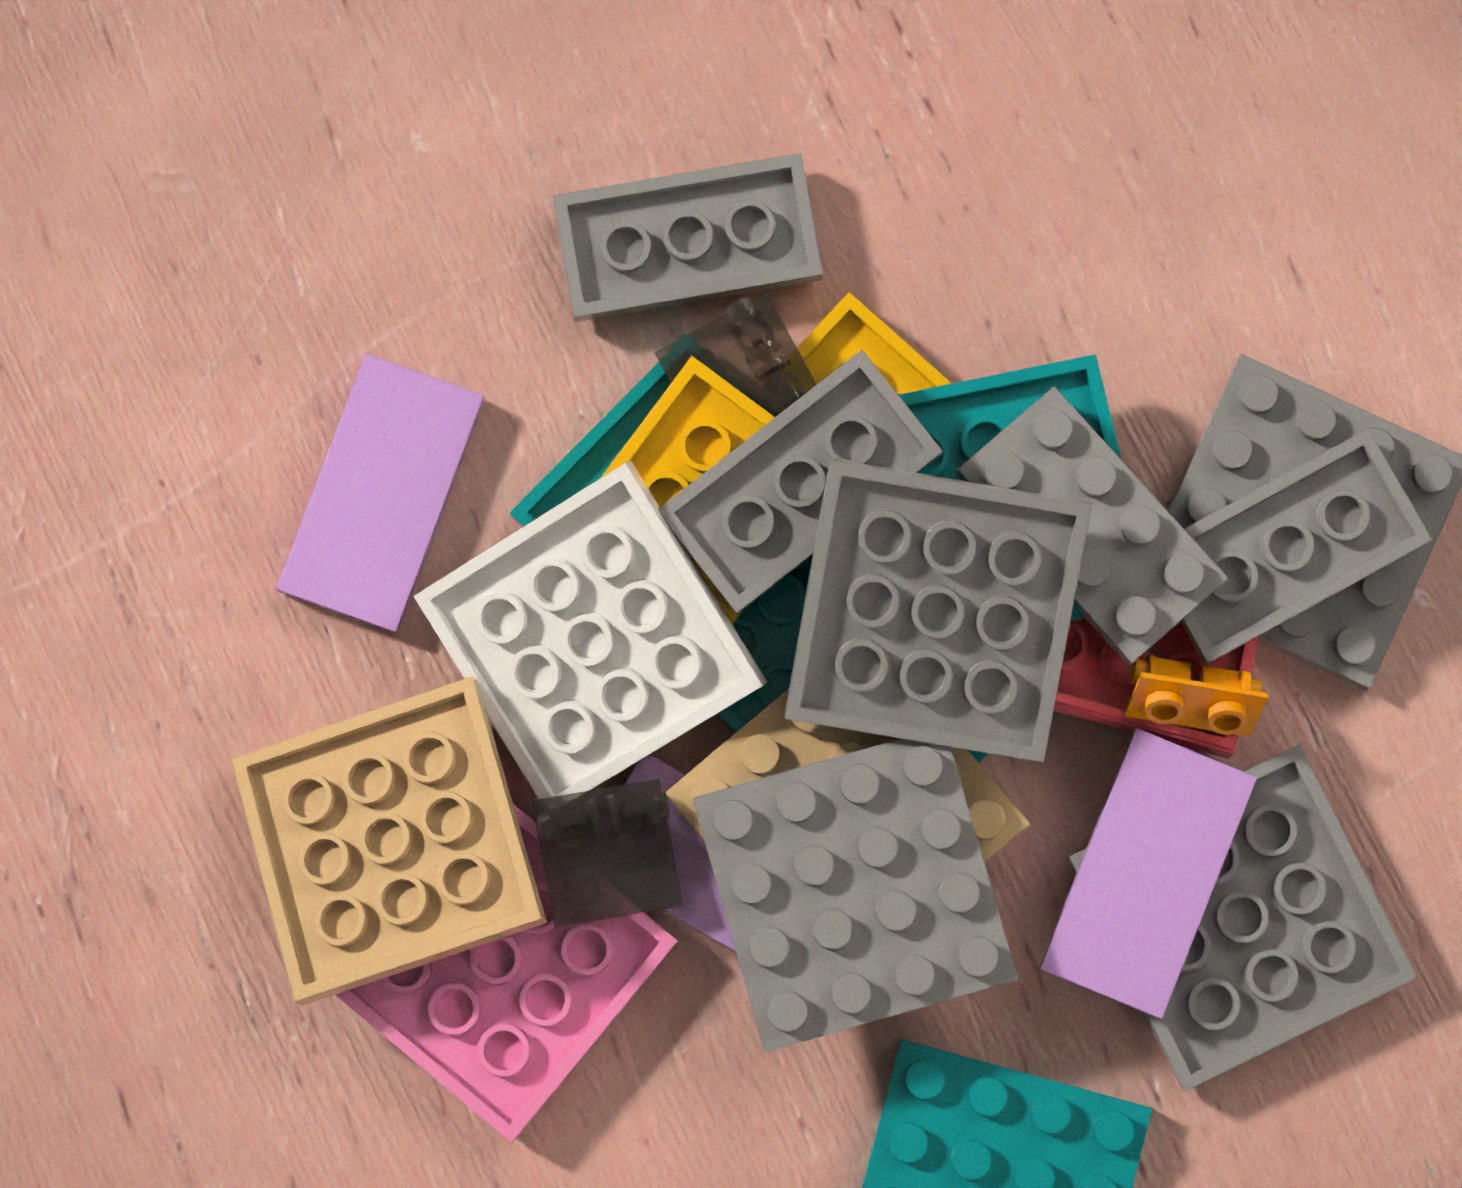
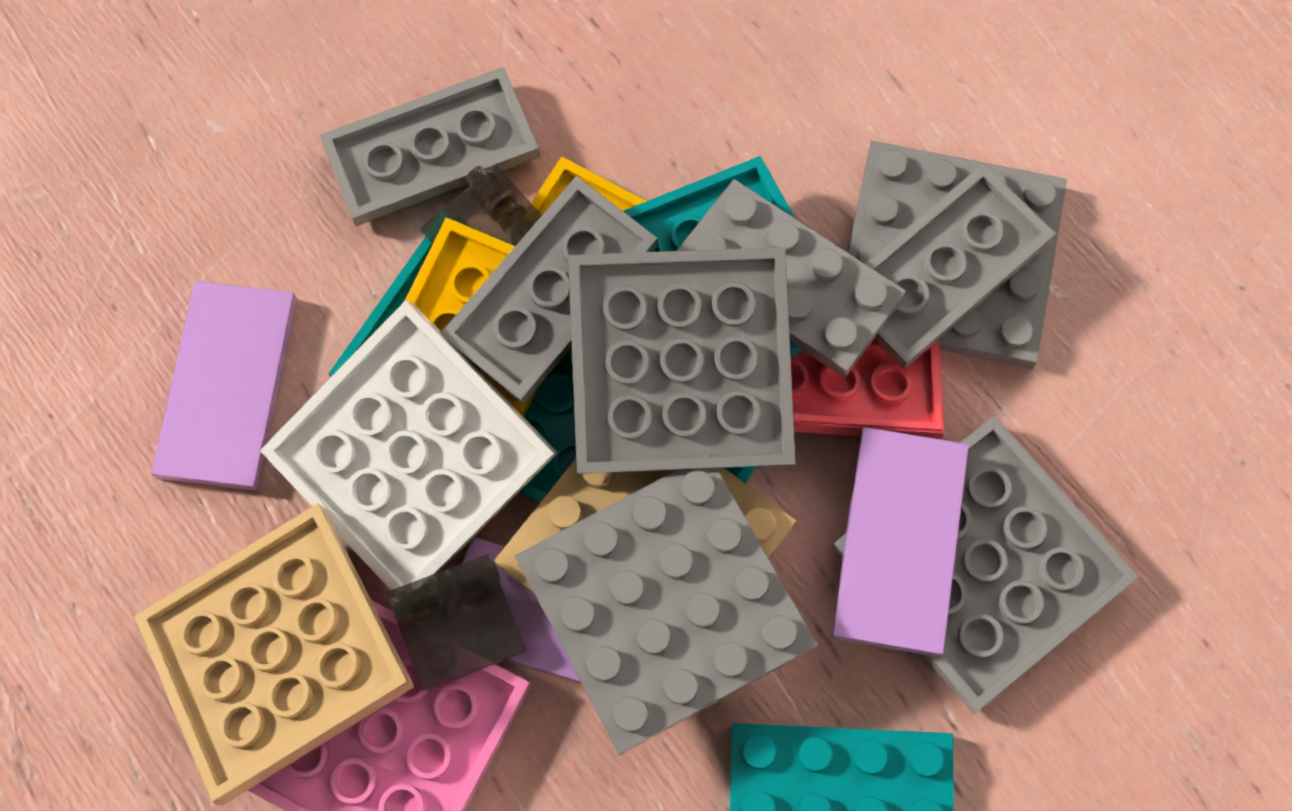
camera: 10 degrees left, 10 degrees down
(1220, 702) = (905, 396): light orange hinge -> none

